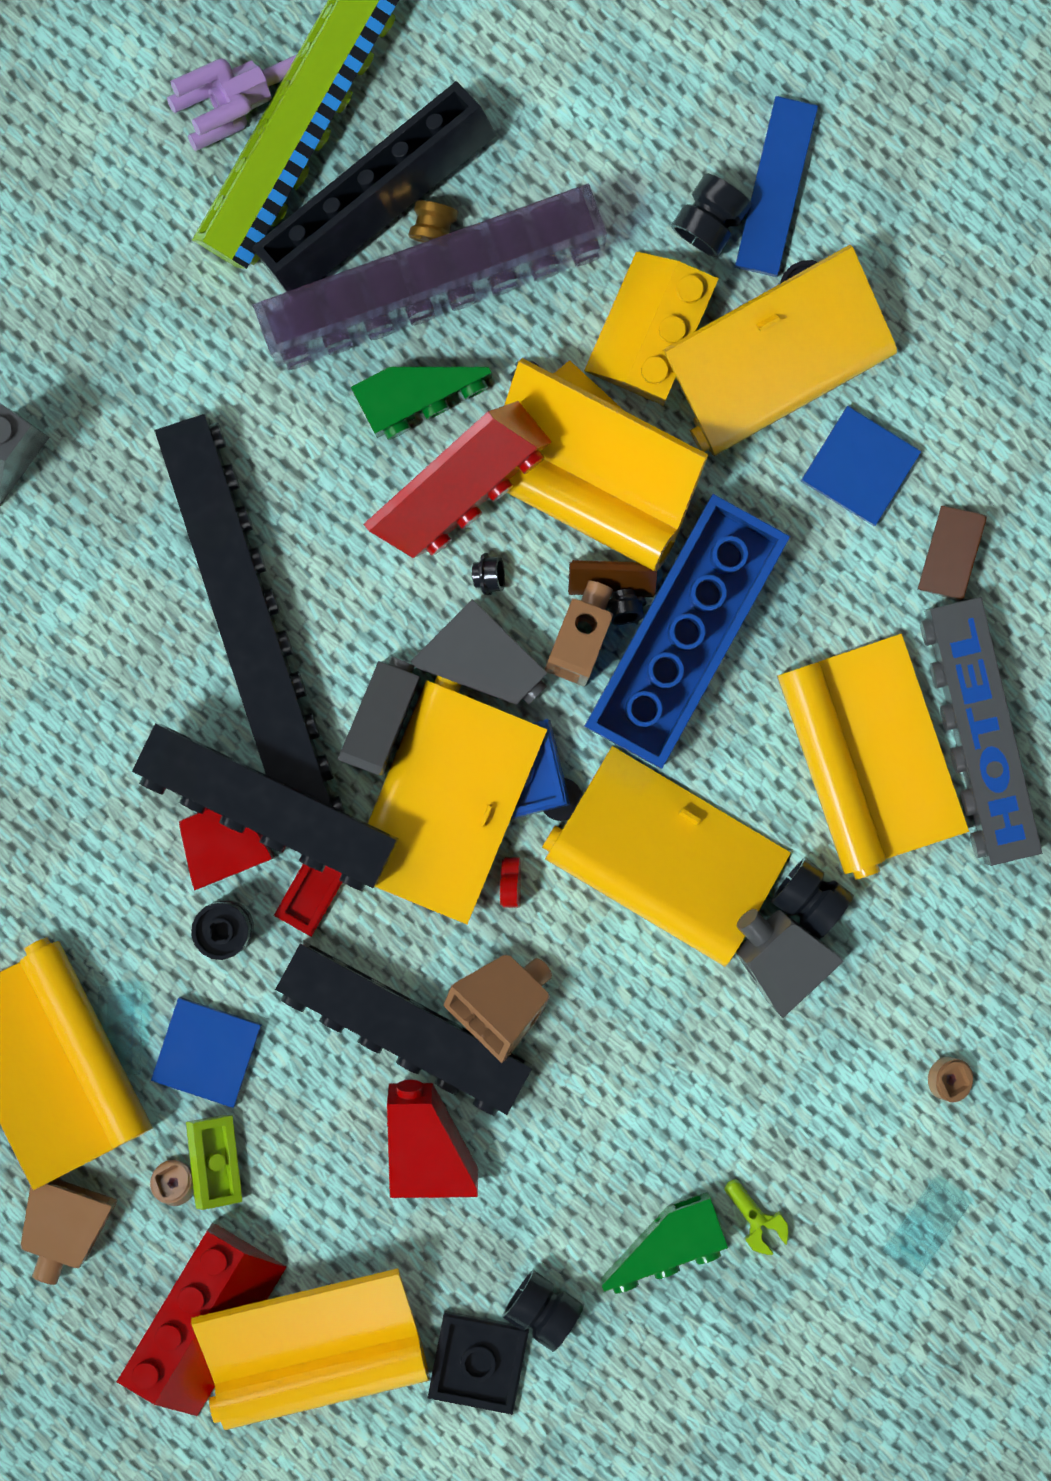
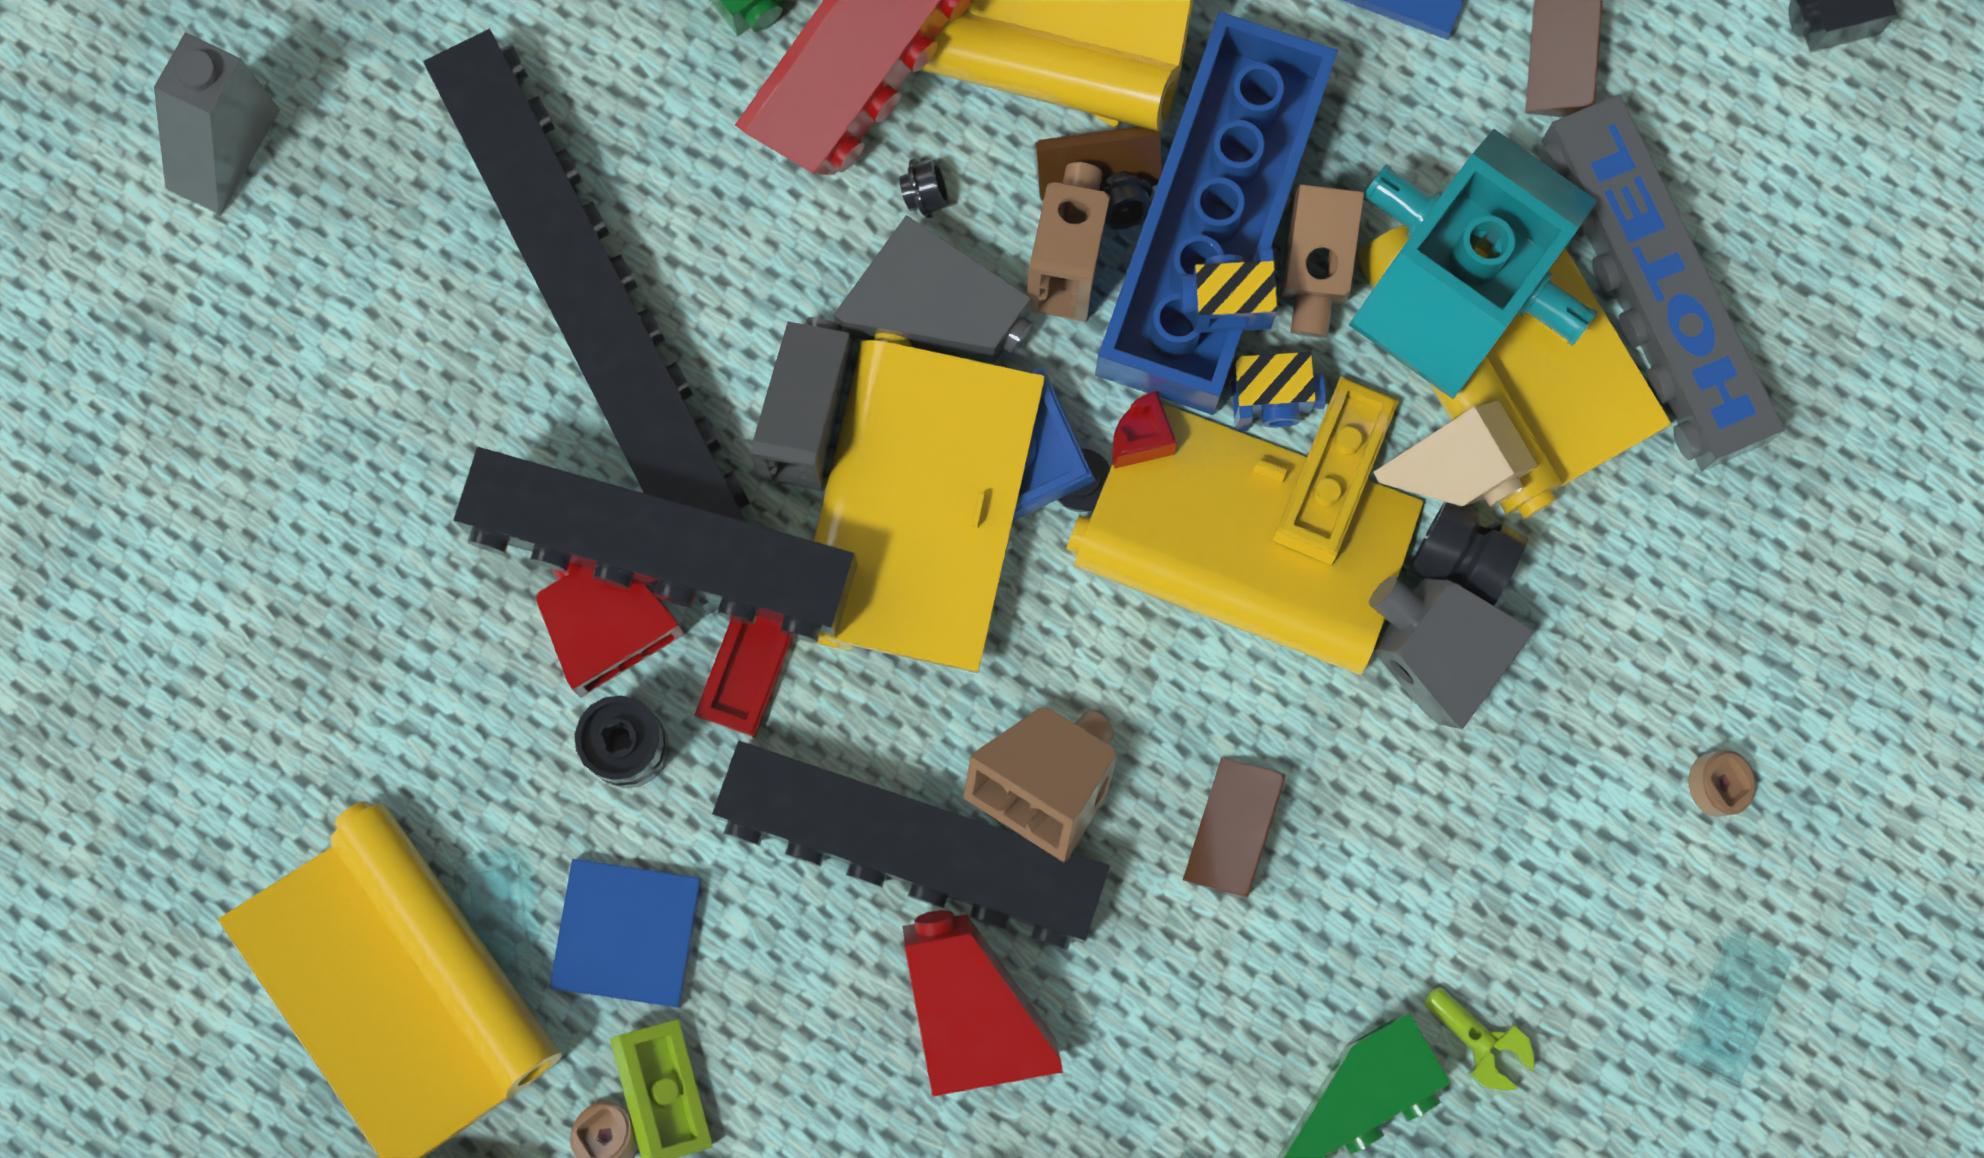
camera: 10 degrees left, 10 degrees down
(510, 882) = (1030, 610): red tile -> none
(607, 776) = (1143, 433): none -> red tile
(620, 1053) = (1234, 828): none -> reddish brown slope
(681, 702) = (1231, 293): none -> brick
(704, 761) = (1275, 389): none -> brick
(734, 824) = (1335, 471): none -> yellow tile
(755, 657) = (1318, 220): none -> medium nougat torso
(820, 729) = (1442, 301): none -> teal slope
(820, 839) = (1464, 460): none -> tan slope

